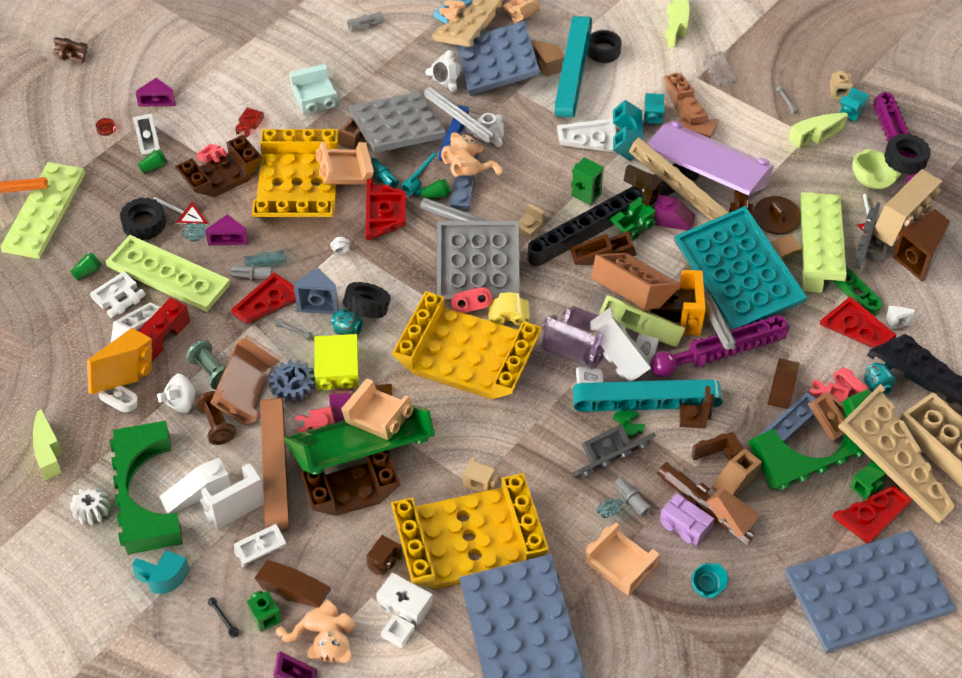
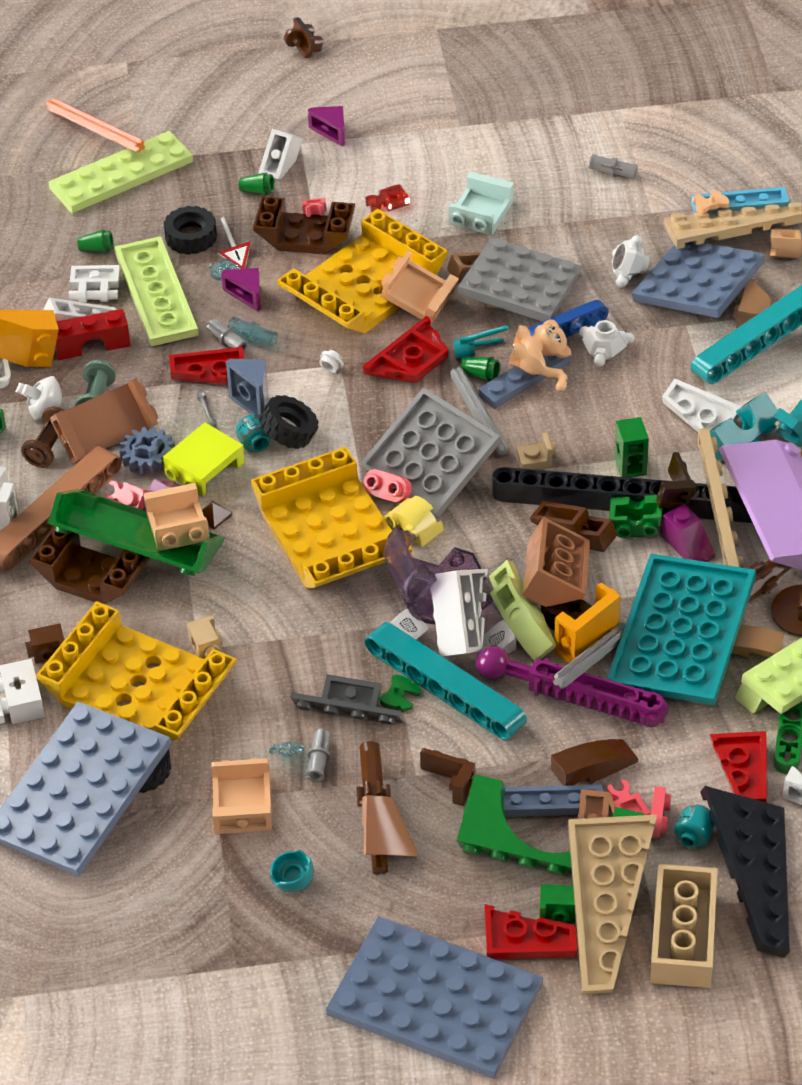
camera: 45 degrees right, 5 degrees down
(105, 126) = (256, 128): clear red tile -> none
(383, 174) = (451, 321): teal pin -> none
(459, 114) = (581, 307): axle -> none
(686, 520) = (340, 808): lavender brick -> none
(697, 415) = (472, 725): reddish brown bracket -> none
(738, 473) = (433, 804): medium nougat slope -> none

